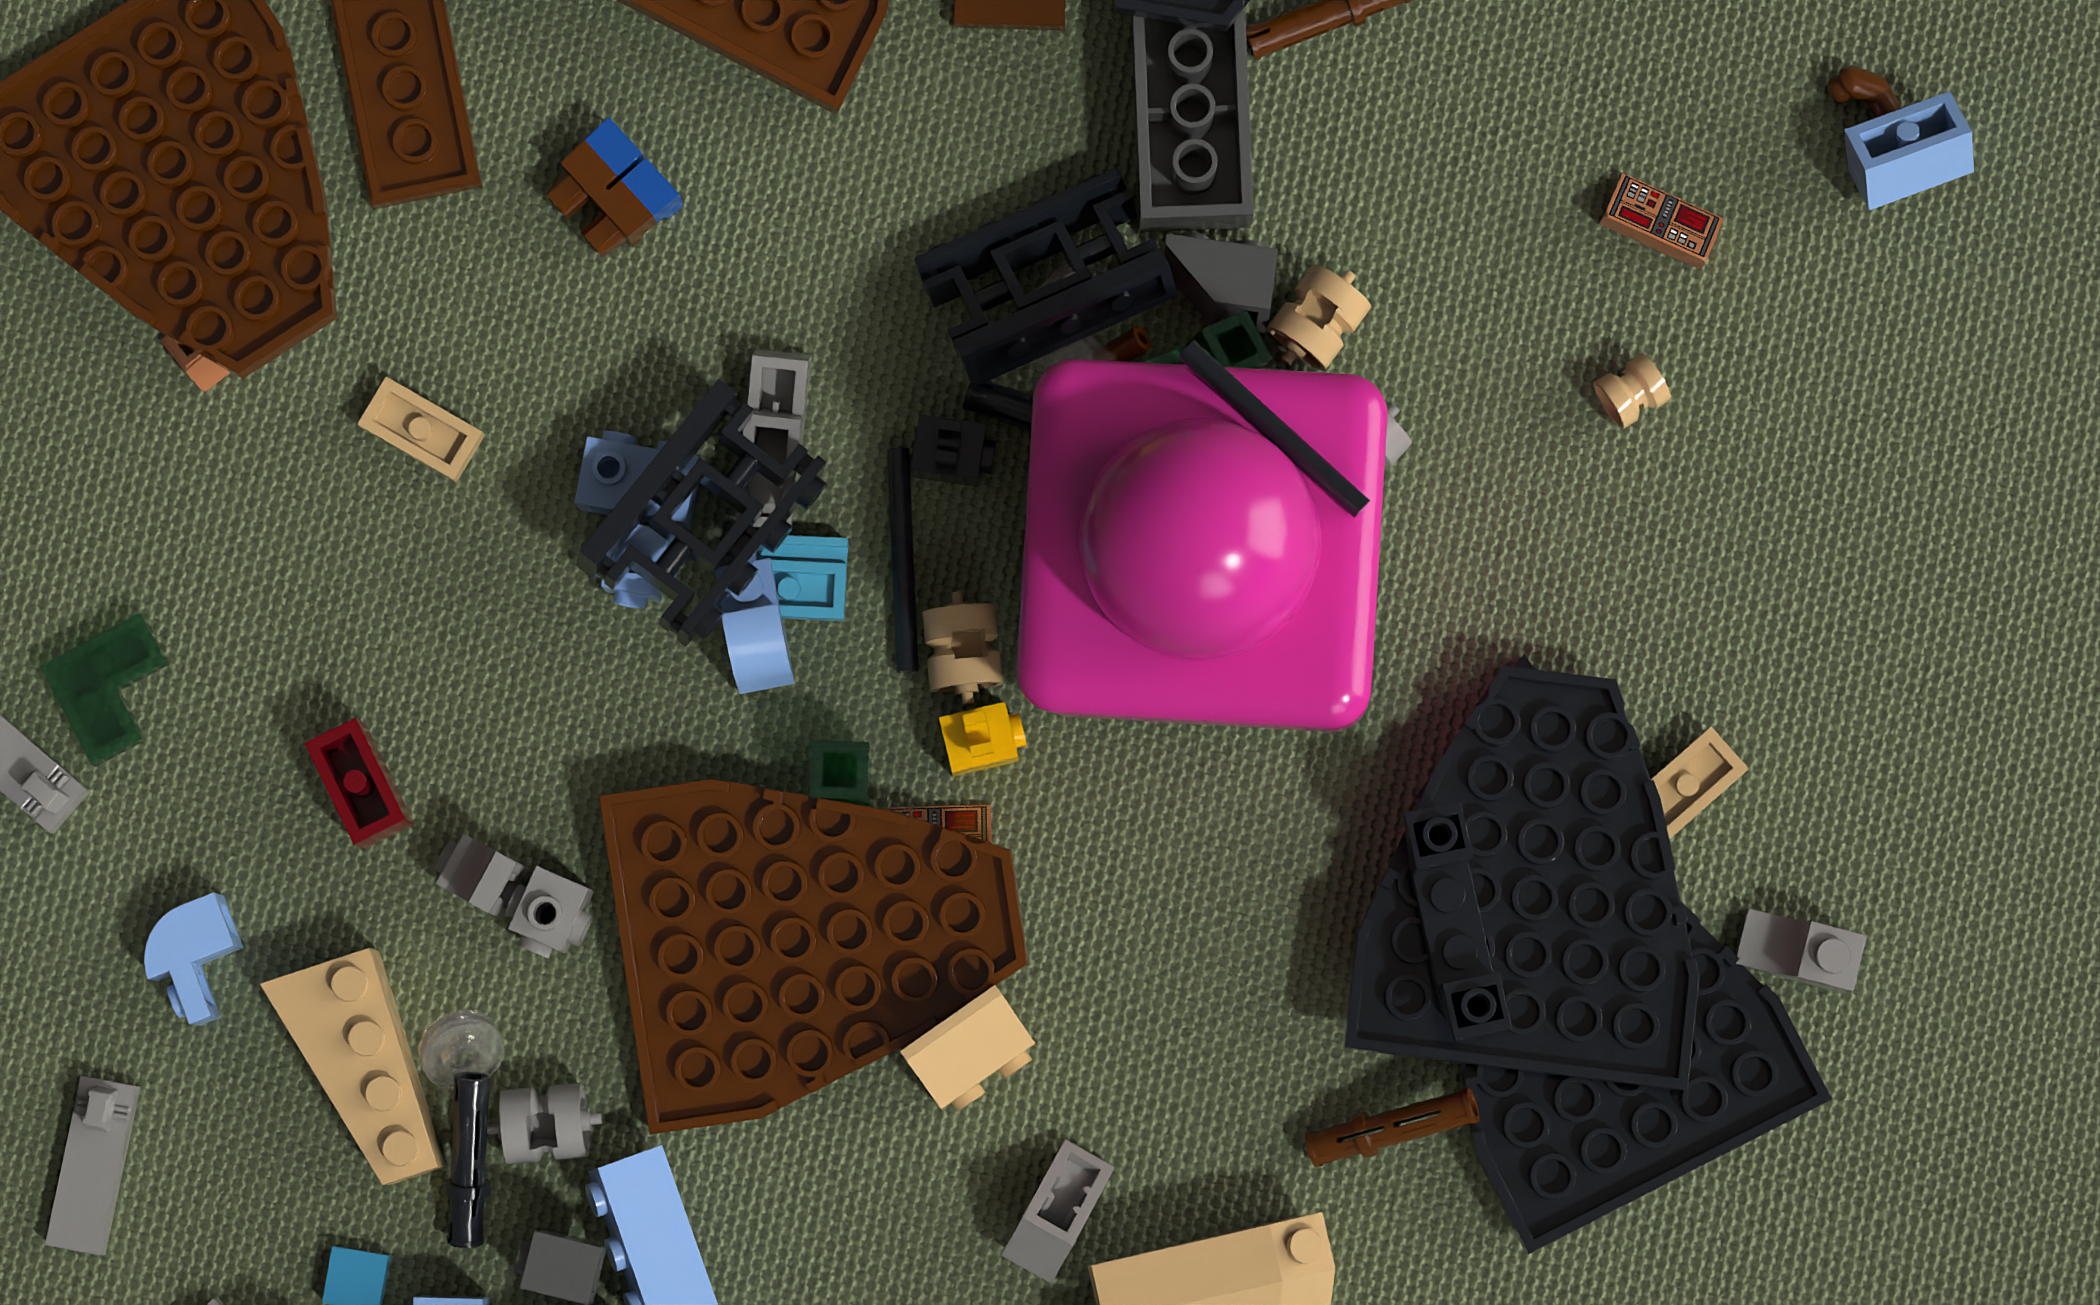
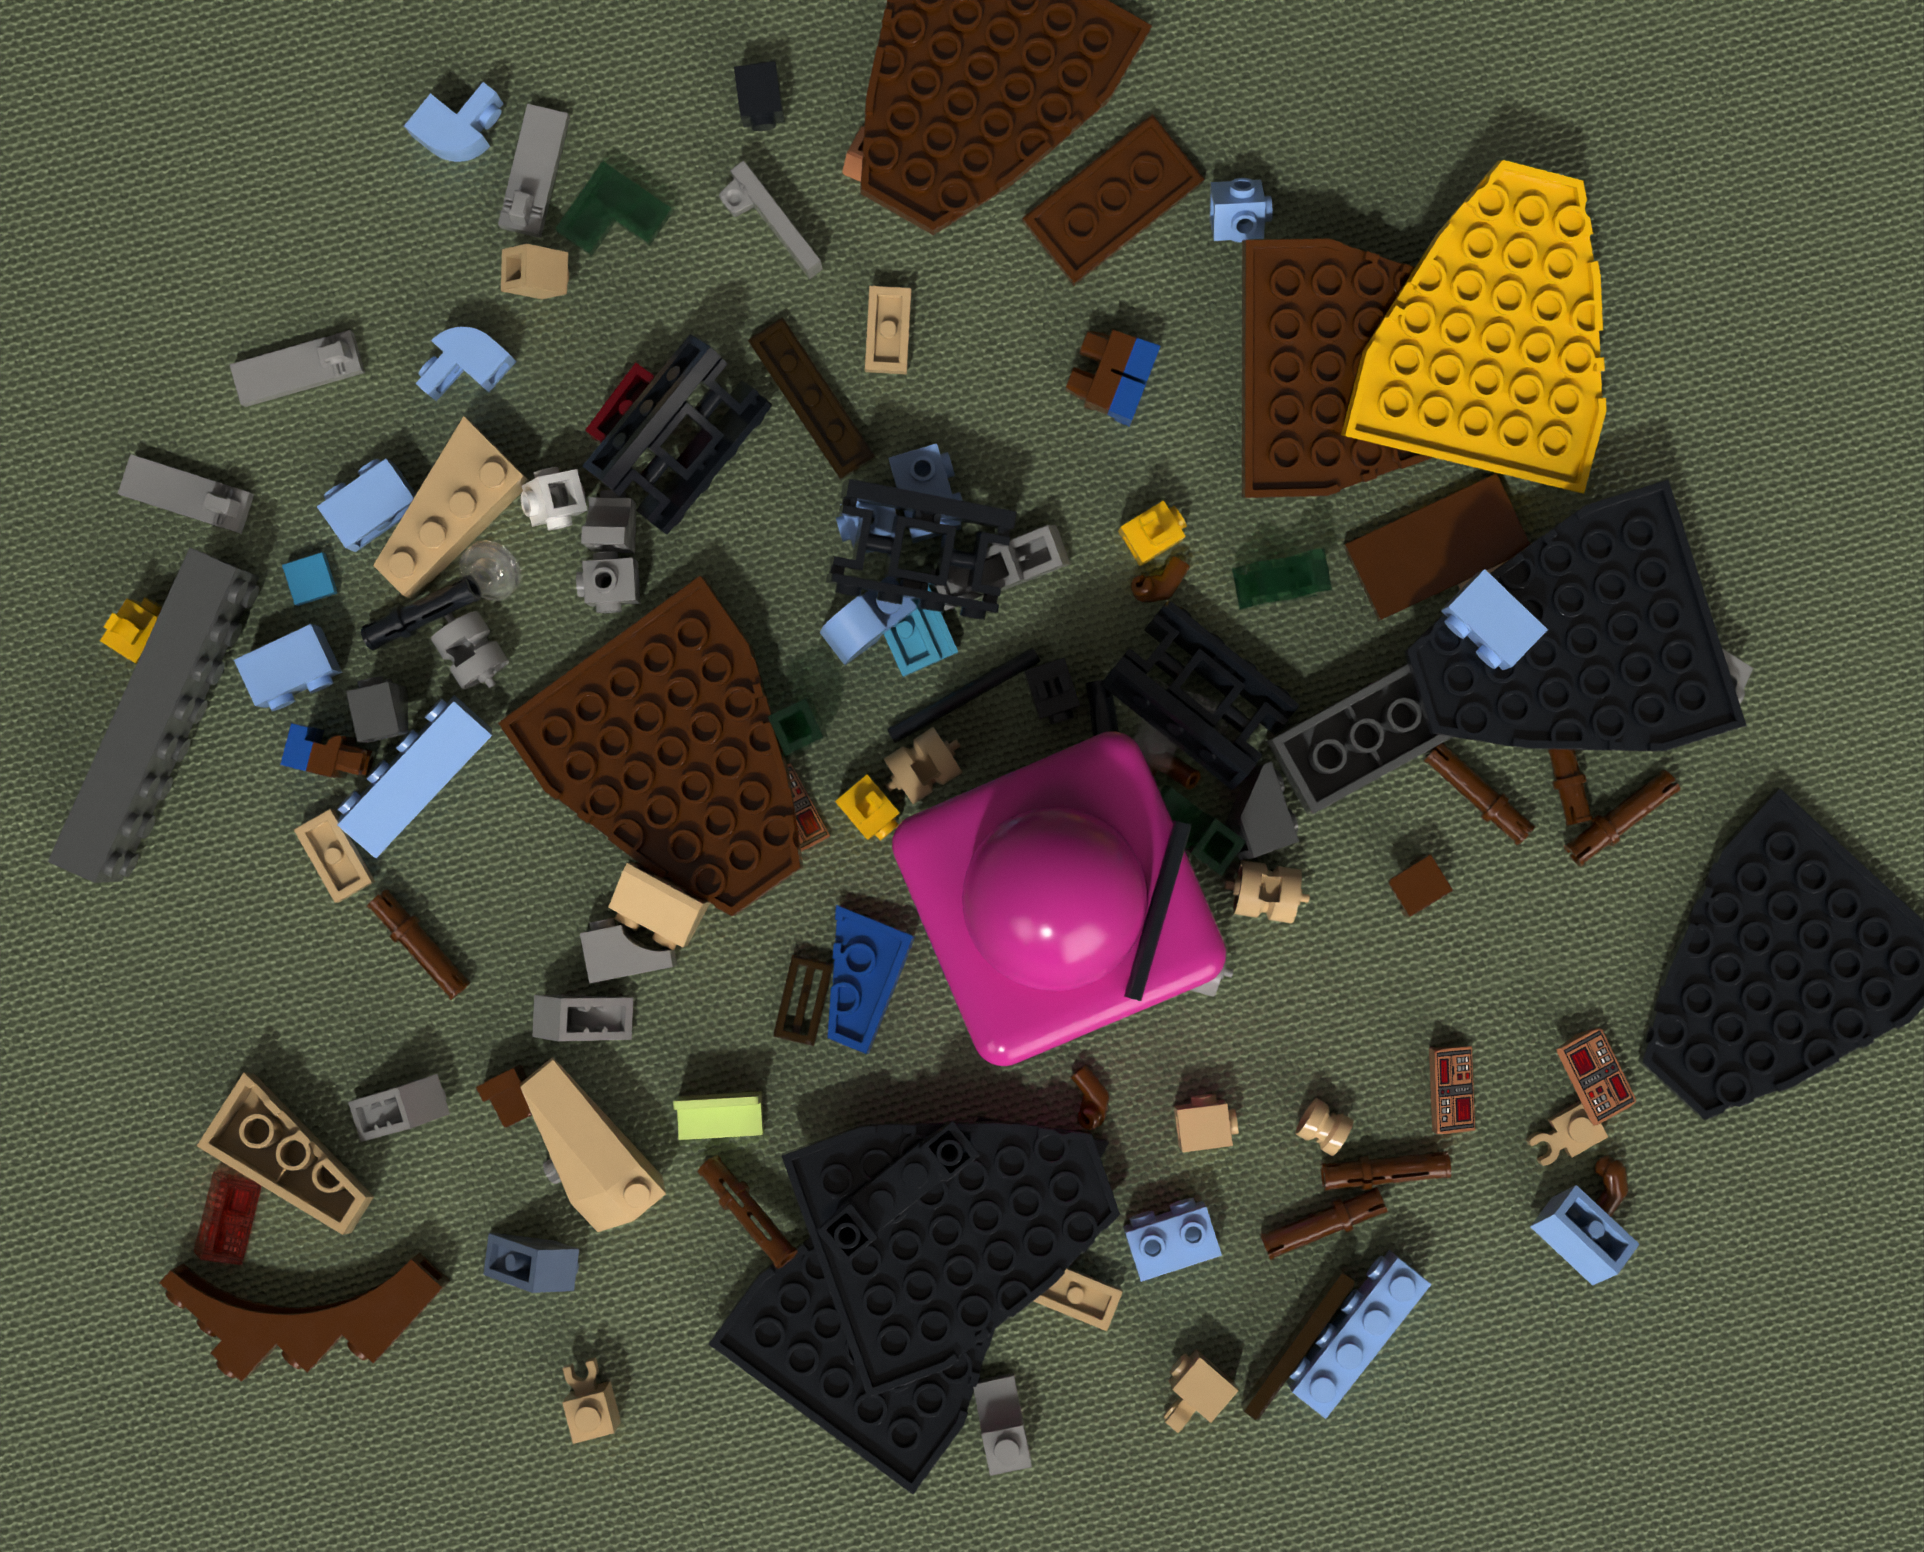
camera: 65 degrees right, 5 degrees up
(61, 440) = (759, 95): none -> black brick
(132, 803) = (534, 271): none -> tan brick
(169, 510) = (747, 192): none -> light grey hinge
(303, 1158) = (367, 504): none -> light blue brick
(383, 749) = (658, 414): none -> black fence
(414, 927) = (553, 498): none -> white brick
(455, 563) = (811, 399): none -> dark brown tile
(824, 238) = (1153, 532): none -> yellow brick
(892, 263) = (1162, 586): none -> reddish brown arm
(958, 114) = (1282, 579): none -> clear green brick
(1002, 1133) = (614, 953): none -> light grey arch
(1179, 845) = (865, 975): none -> blue wing
(1208, 966) = (811, 965): none -> dark brown tile
(1260, 1106) = (719, 1115): none -> yellowish green panel
(1400, 136) = (1419, 885): none -> reddish brown panel
(1462, 645) = (1094, 1099): none -> reddish brown arm
(1558, 529) = (1205, 1123): none -> tan brick
(1676, 637) = (1171, 1239): none -> light blue brick
(1712, 366) = (1397, 1169): none -> reddish brown pin
(1728, 44) = (1596, 1075): none -> slope
(1746, 448) = (1324, 1223): none -> reddish brown pin
(1781, 103) = (1570, 1131): none -> tan plate
(1872, 692) = (1200, 1389): none -> tan brick
(1874, 550) = (1298, 1344): none -> dark brown tile
(1896, 473) = (1357, 1333): none -> light blue brick

